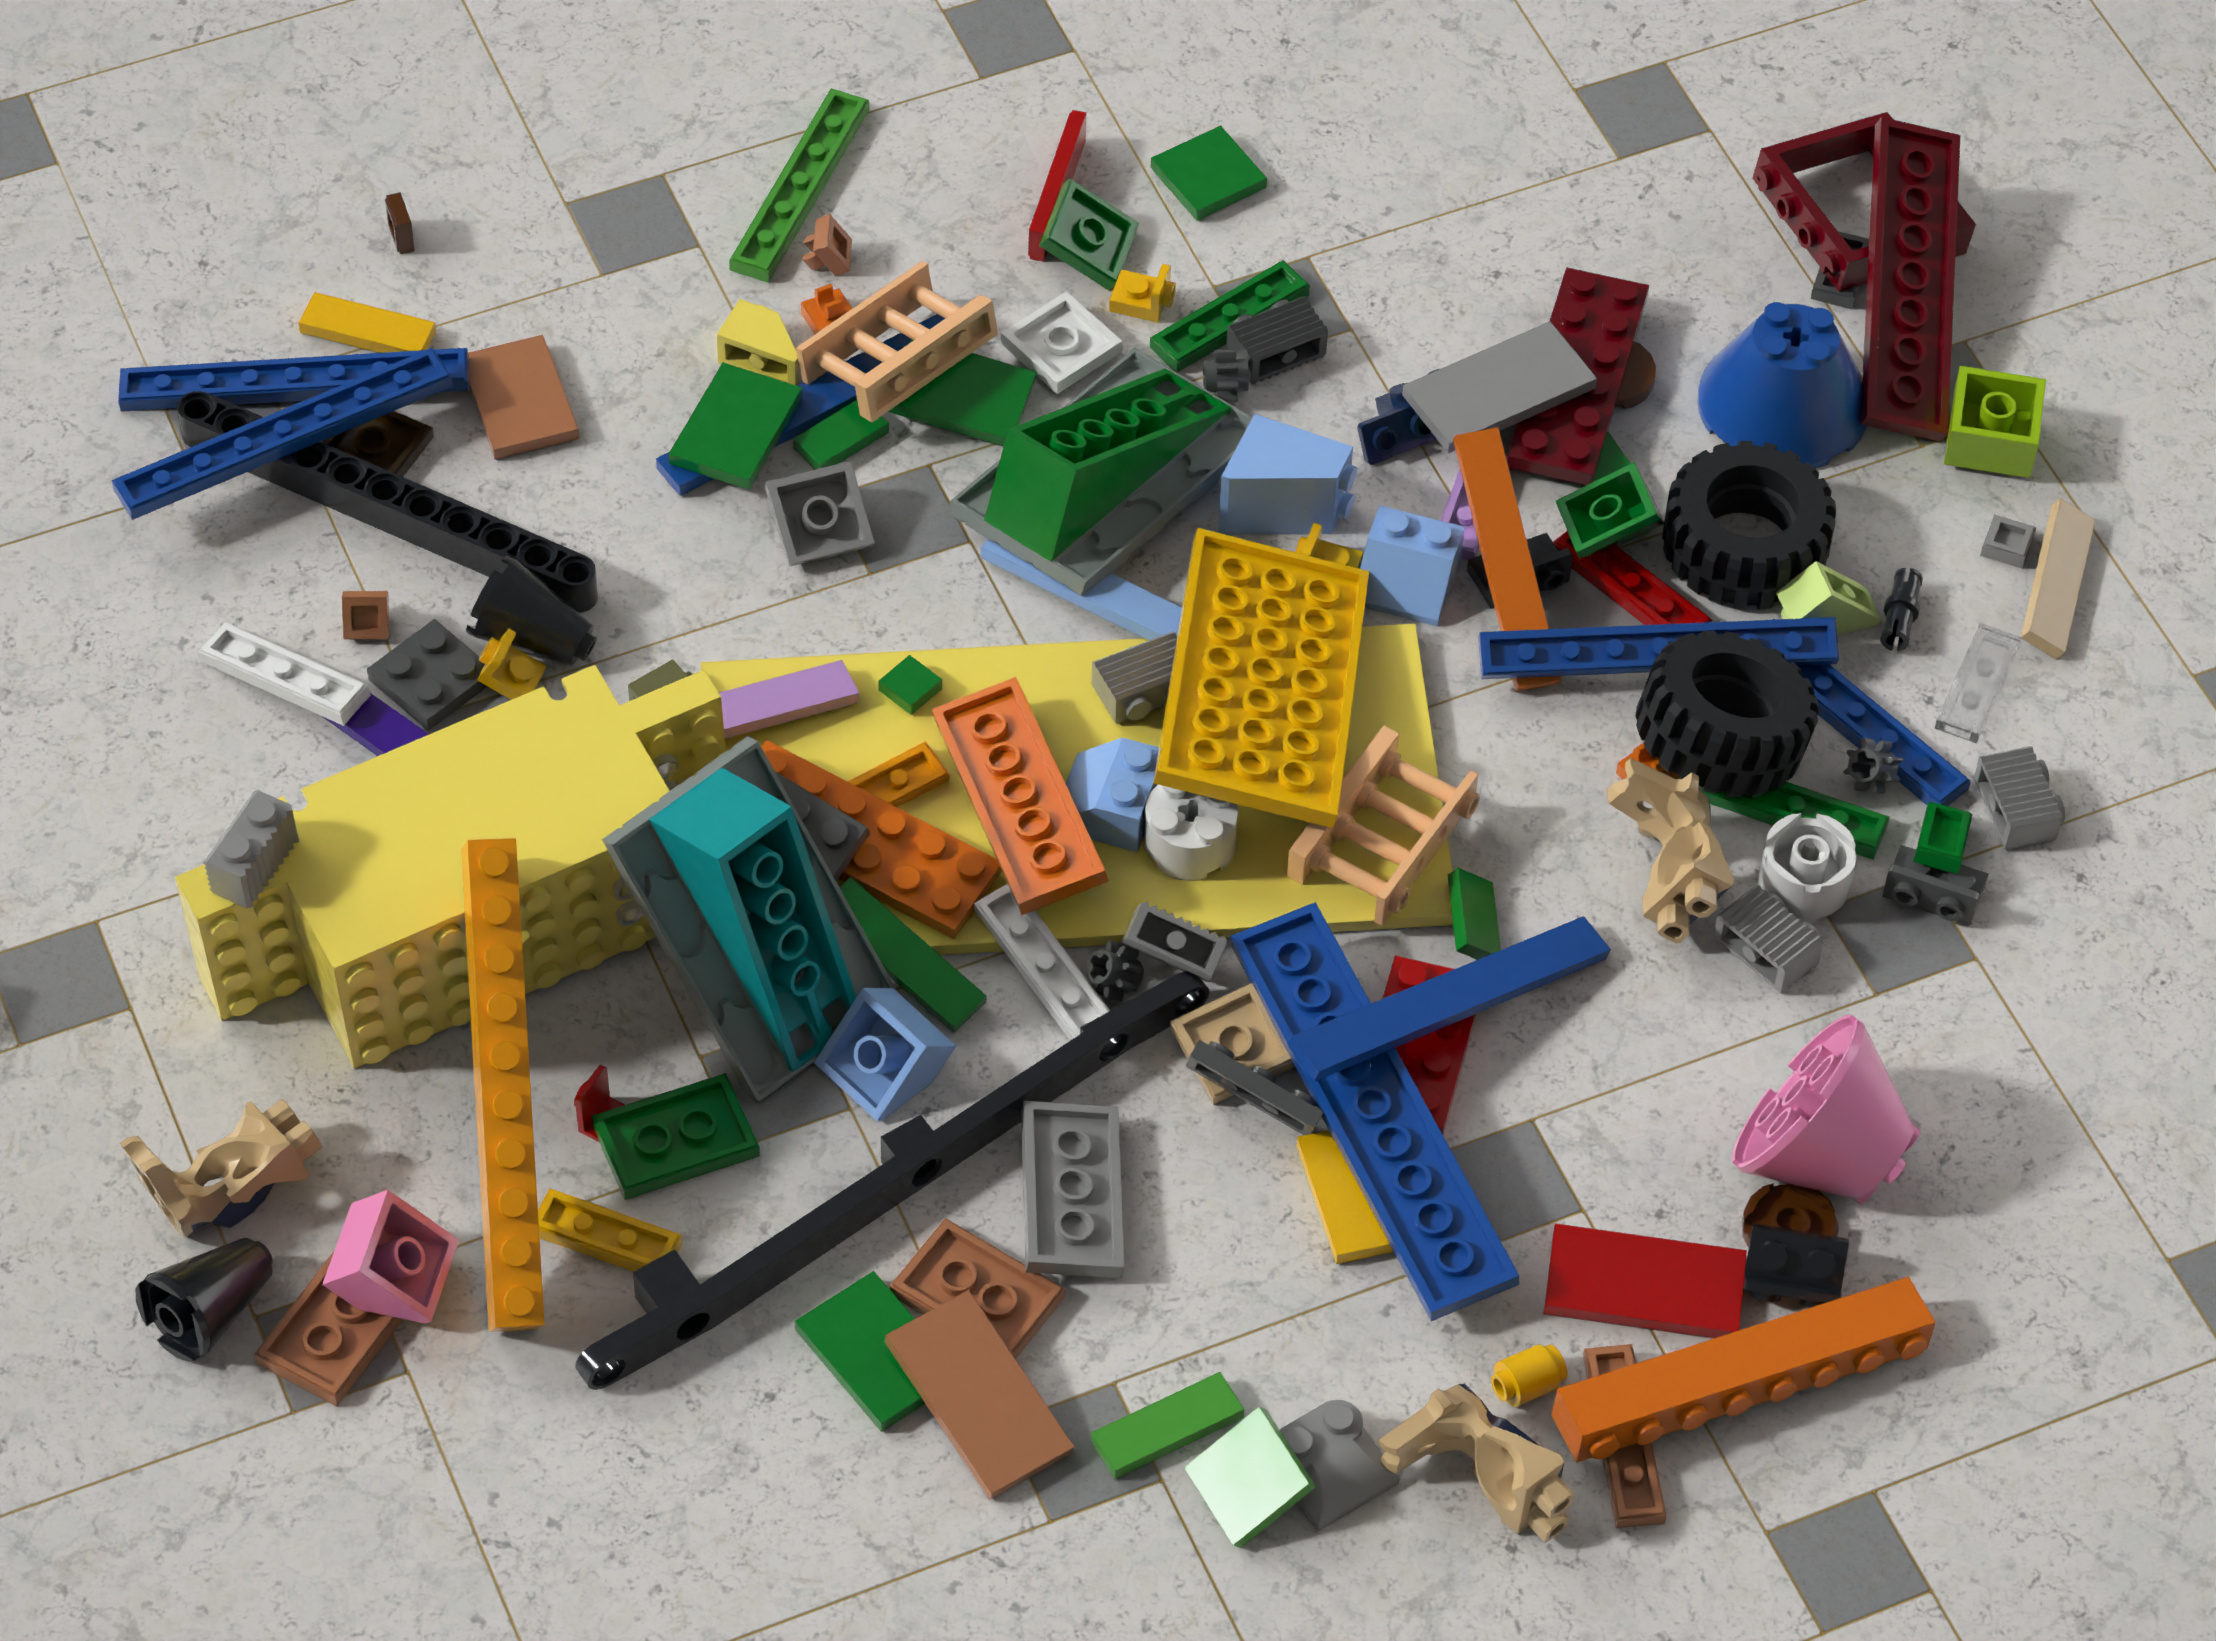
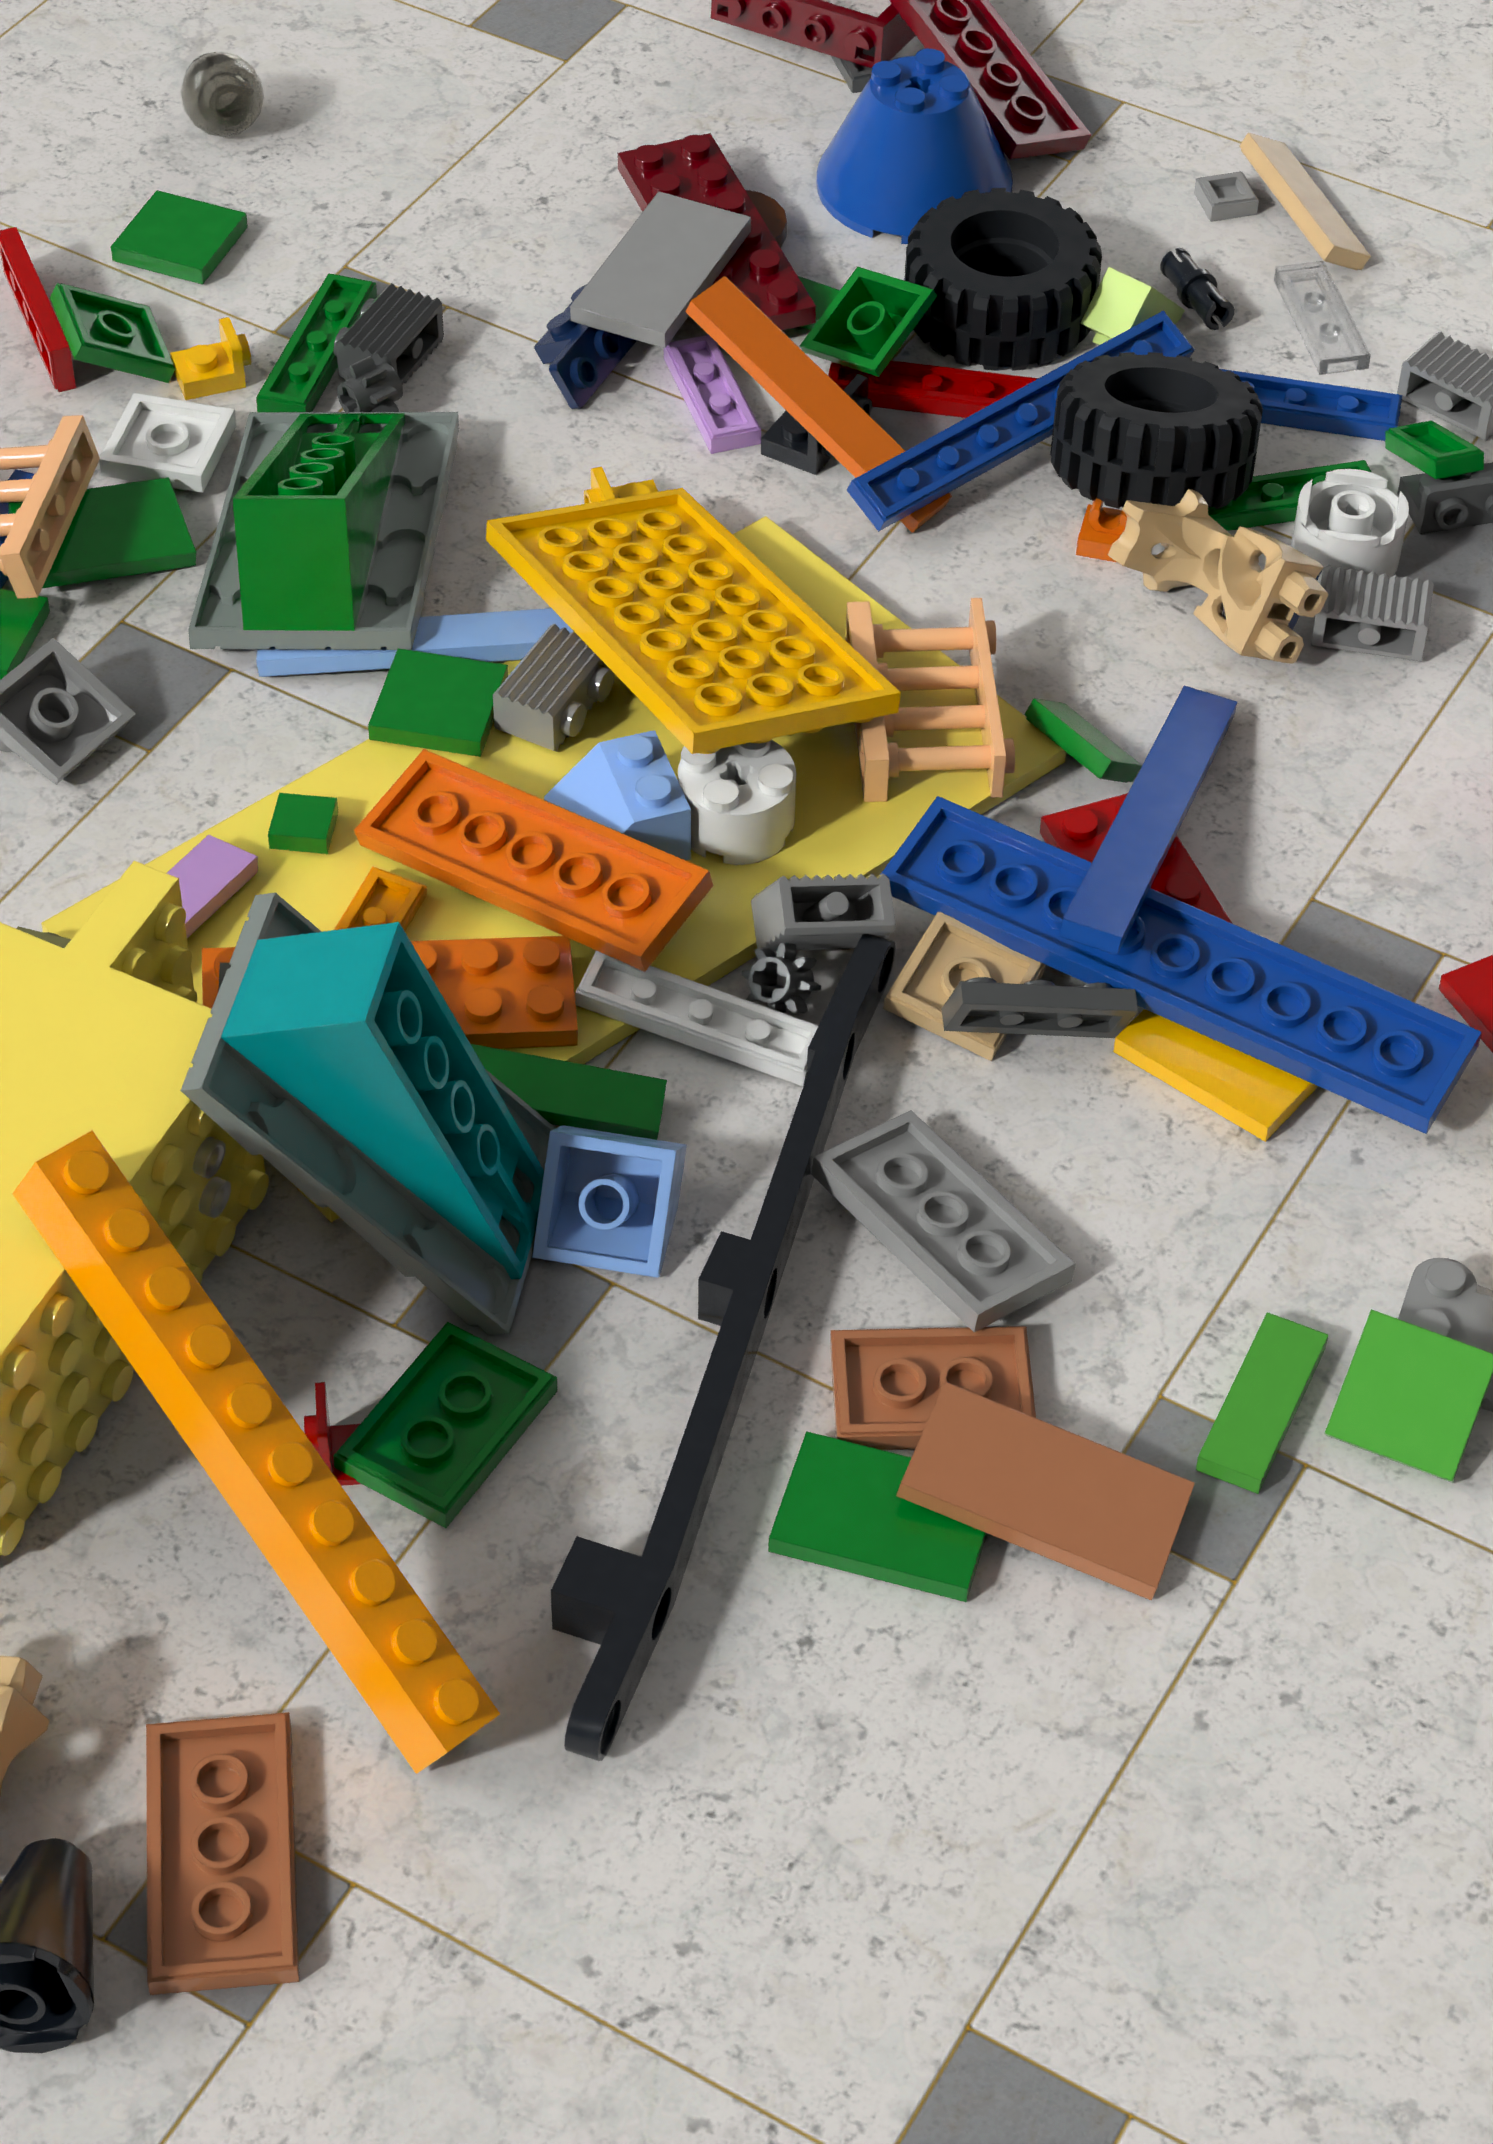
camera: 35 degrees left, 5 degrees down
(391, 1259) = (238, 1756): bright pink slope -> none
(602, 1232) = (484, 1571): yellow tile -> none
(1065, 642) = (437, 702): none -> green tile
(1285, 481) = (530, 441): light blue slope -> none
(1324, 66) = (222, 94): none -> clear smoke piece
(1411, 564) = (717, 458): light blue slope -> none
(1876, 777) = (1314, 406): dark grey gear -> none
(1995, 421) = (1131, 100): lime brick -> none

